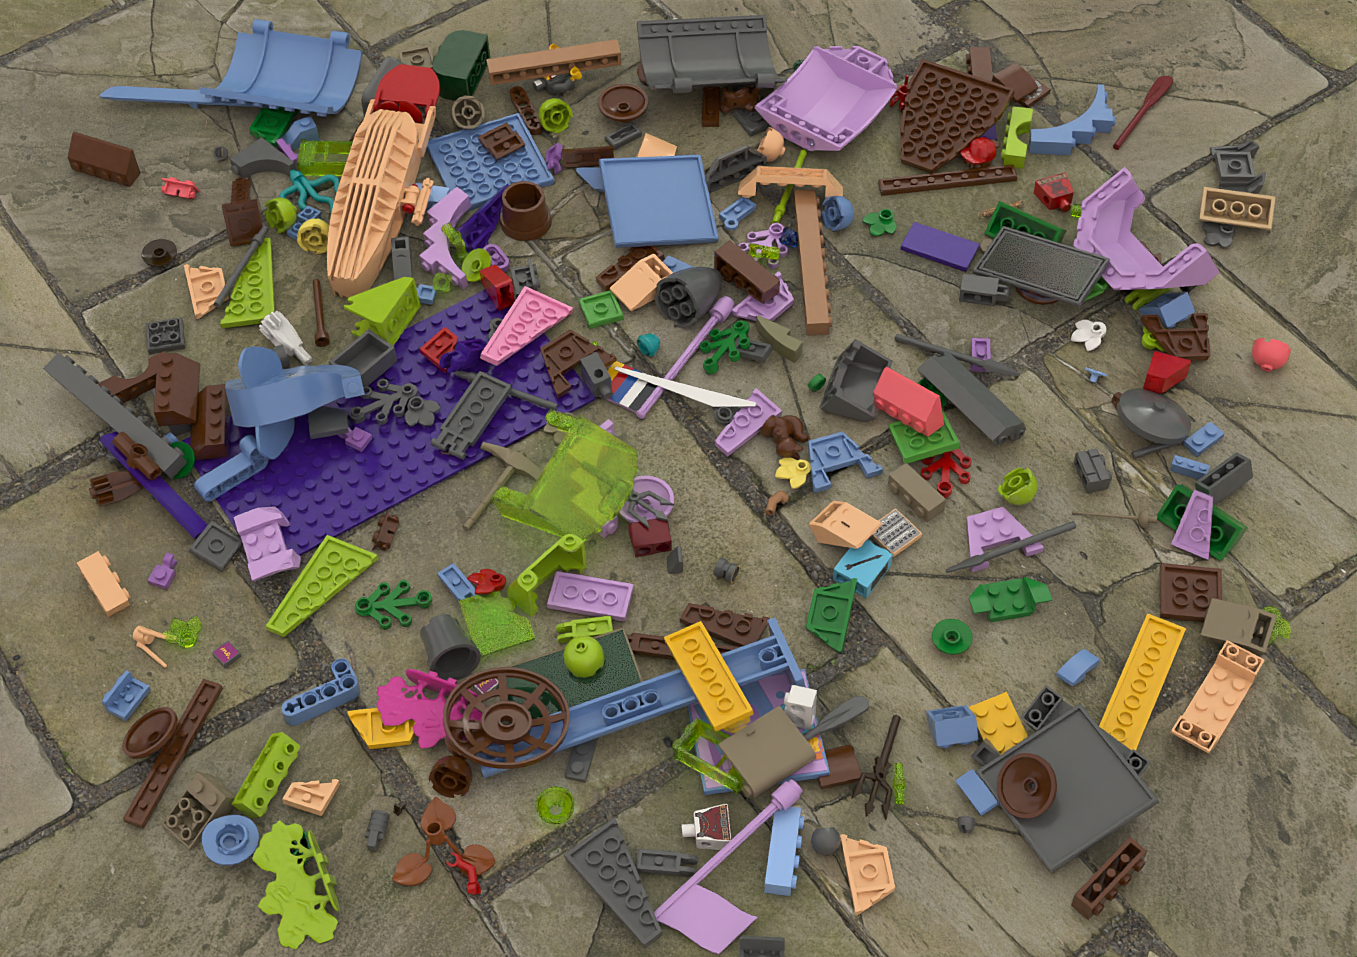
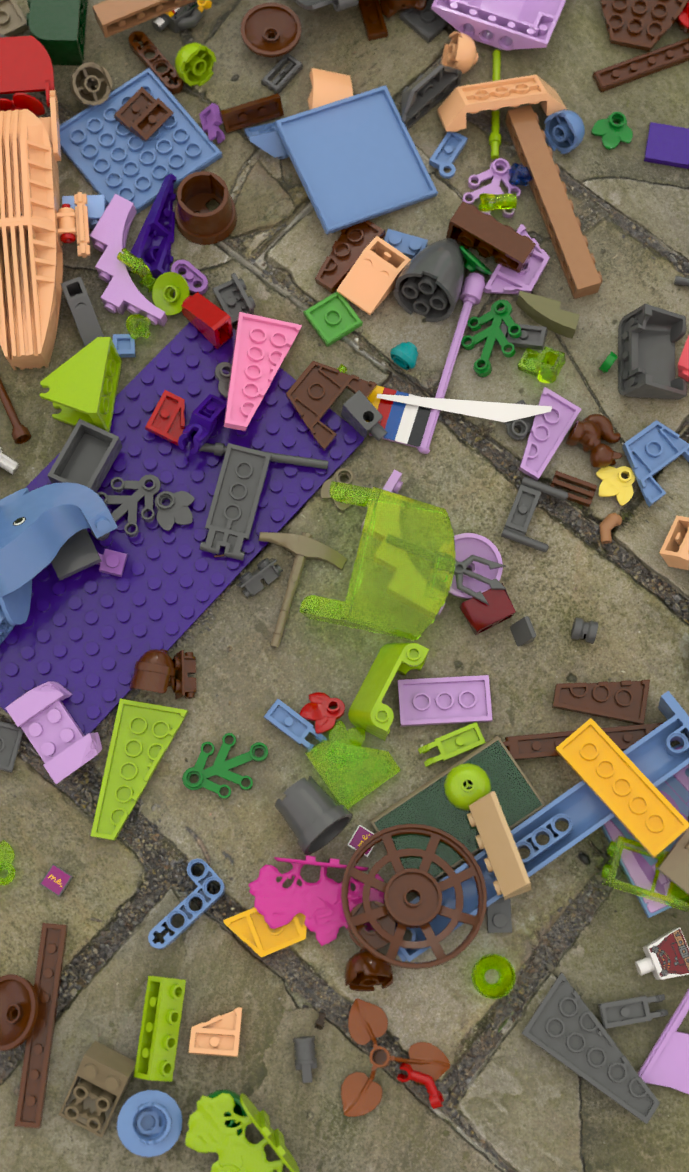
camera: 20 degrees left, 20 degrees up
(360, 517) = (153, 672): none -> reddish brown helmet
(464, 476) = (265, 571): none -> dark grey hinge
(590, 697) = (500, 847): none -> tan slope
(707, 473) = (523, 510): none -> dark grey plate
(728, 290) = (473, 263): none -> green dish
(757, 466) = (578, 482): none -> reddish brown tile
(760, 371) = (543, 365): none -> clear neon green brick

